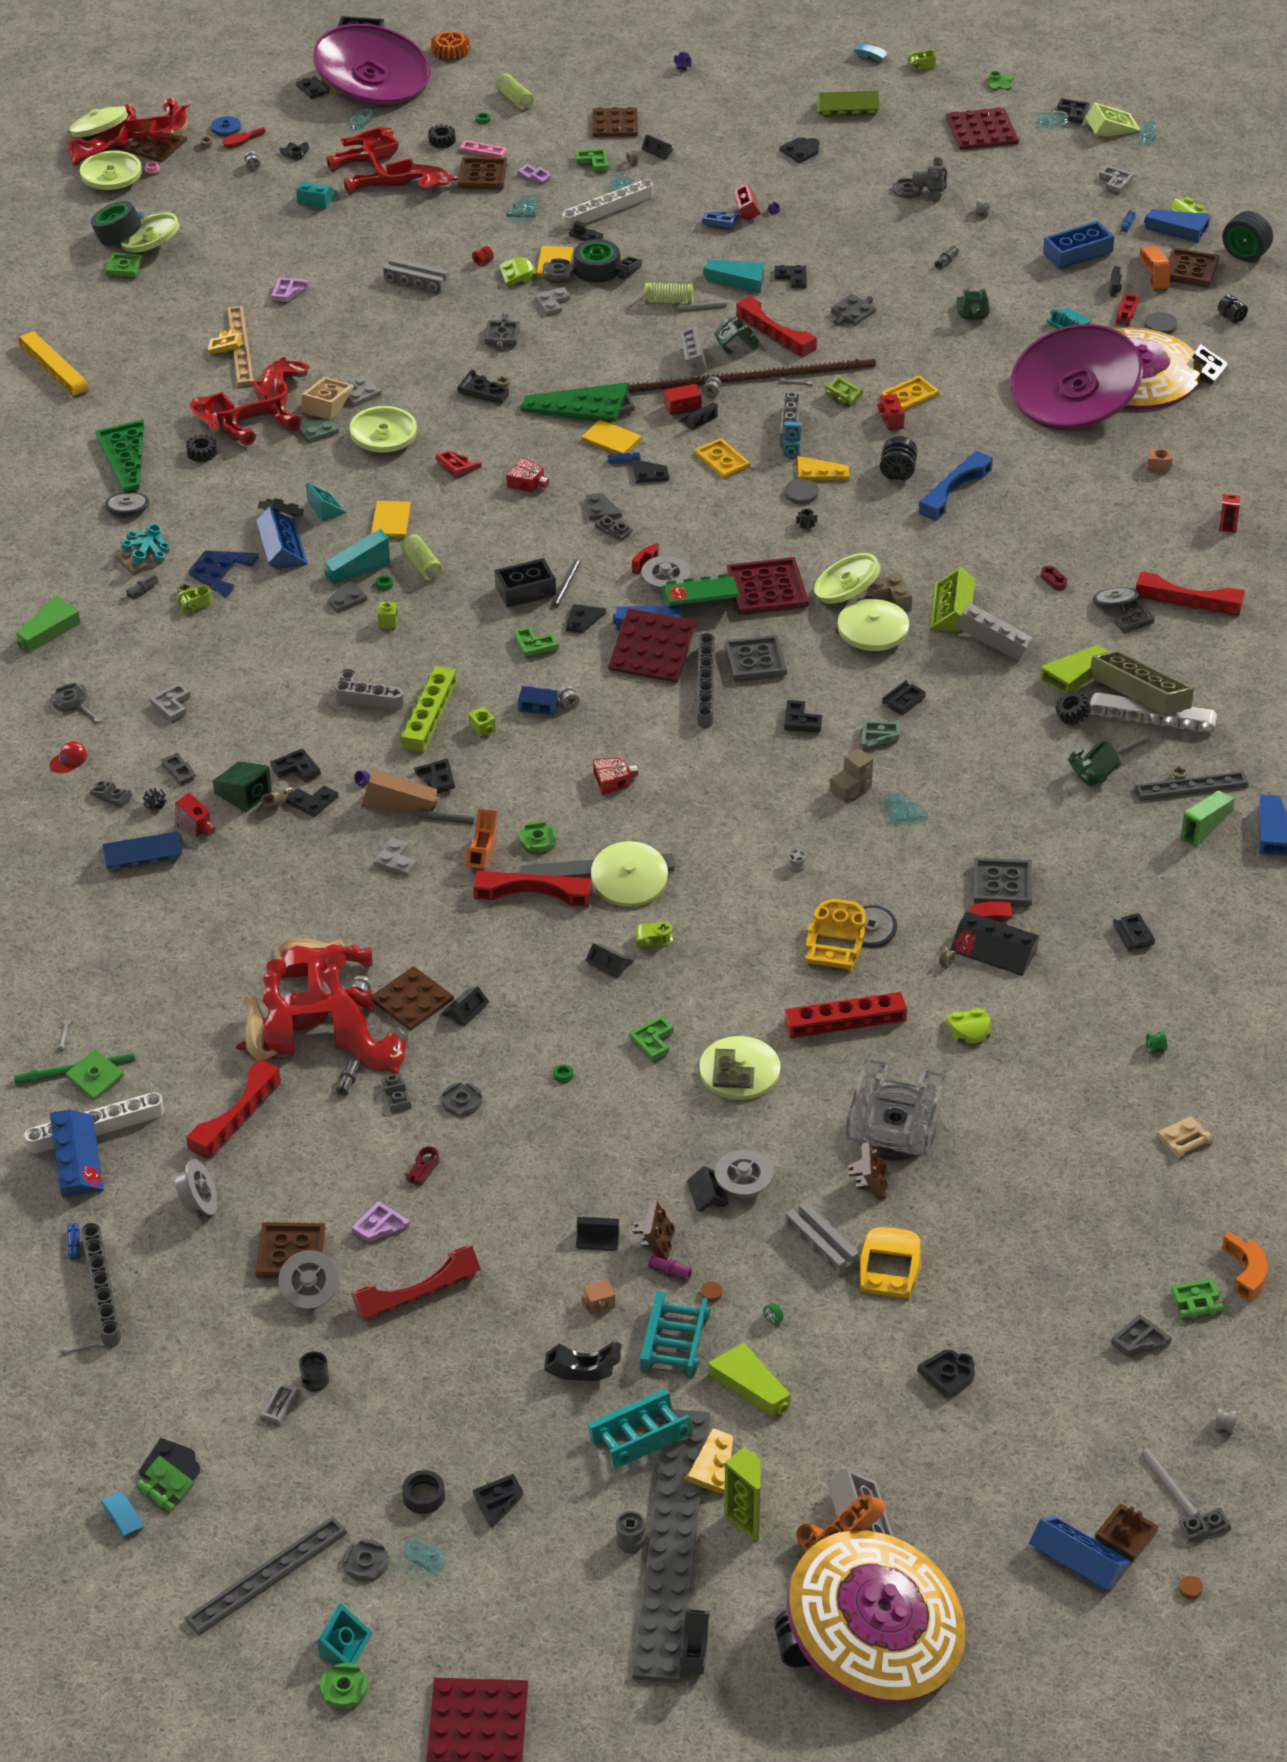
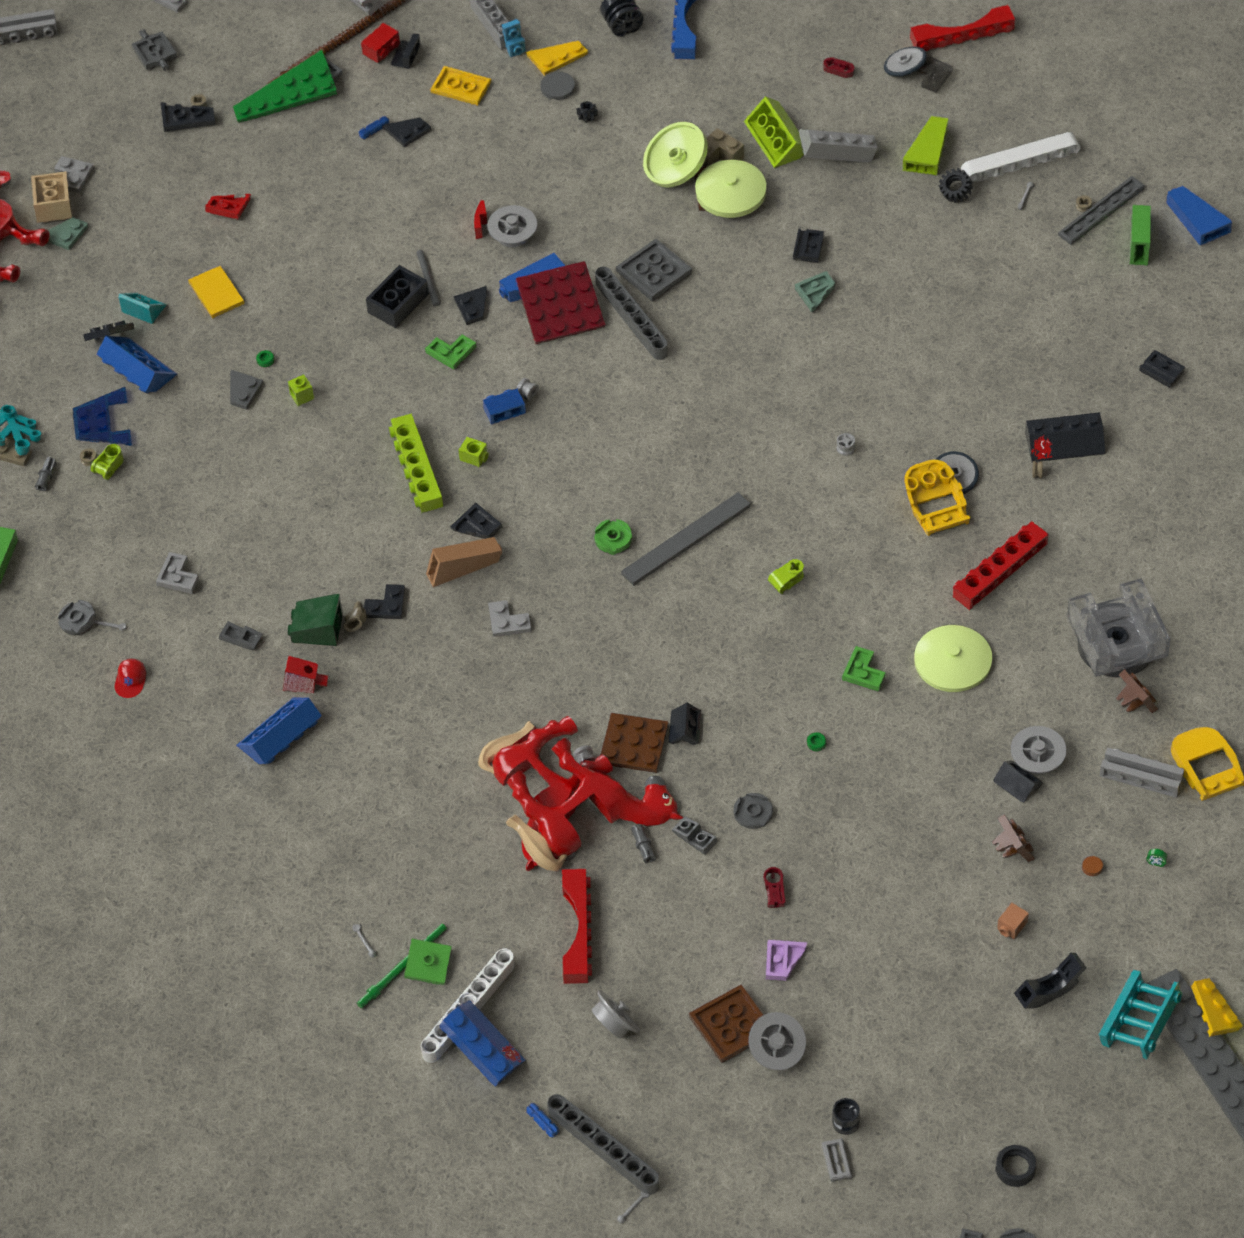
camera: 30 degrees left, 10 degrees up
(108, 792) = (198, 692): dark grey slope -> none
(154, 799) = (248, 677): black gear -> none
(296, 761) = (344, 573): black plate -> none
(359, 558) = (227, 346): teal slope -> none
(361, 776) = (409, 559): dark purple hinge -> none
(367, 694) = (346, 477): light grey beam -> none
(383, 429) = (134, 204): yellowish green dish -> none
(423, 547) = (281, 315): yellowish green piece -> none
(425, 1554) = (1059, 1215): clear light blue plate -> none
(446, 816) = (516, 558): dark grey bar -> none
(460, 1264) = (881, 959): red arch -> none
(484, 839) = (573, 566): orange arch -> none
(497, 884) = (685, 571): red arch -> none
(498, 1498) = (1076, 1136): black wing -> none
(526, 476) = (305, 188): red torso -> none
(597, 1233) = (964, 868): black panel -> none
(600, 505) = (395, 187): dark grey wing -> none
(607, 959) = (767, 618): black panel -> none
(611, 437) = (345, 112): yellow tile -> none
(612, 774) = (627, 444): red torso -> none
(615, 529) = (430, 202): dark grey slope -> none
(629, 874) = (720, 530): yellowish green dish -> none
(630, 1531) = (1203, 1103): dark grey wheel -> none
(657, 1324) = (1085, 934): teal fence -> none
(670, 1267) = (1045, 864): magenta pin -> none
(699, 591) = (559, 230): green slope -> none
(712, 386) = (394, 17): light grey wheel -> none
(729, 1075) = (957, 670): clear smoke plate -> none
(750, 1379) = (1187, 923): lime slope -> none
(768, 585) = (606, 194): dark red plate -> none
(799, 721) = (739, 312): black plate -> none
(854, 777) = (833, 342): dark tan brick -> none
(903, 809) = (891, 351): clear light blue wing -> none
(969, 1025) = (1102, 521): lime slope -> none
(993, 910) = (1038, 408): red slope -> none
(1003, 881) = (1025, 377): dark grey plate -> none
(1096, 764) = (1017, 228): dark green piece -> none
(1141, 682) = (999, 135): olive brick -> none

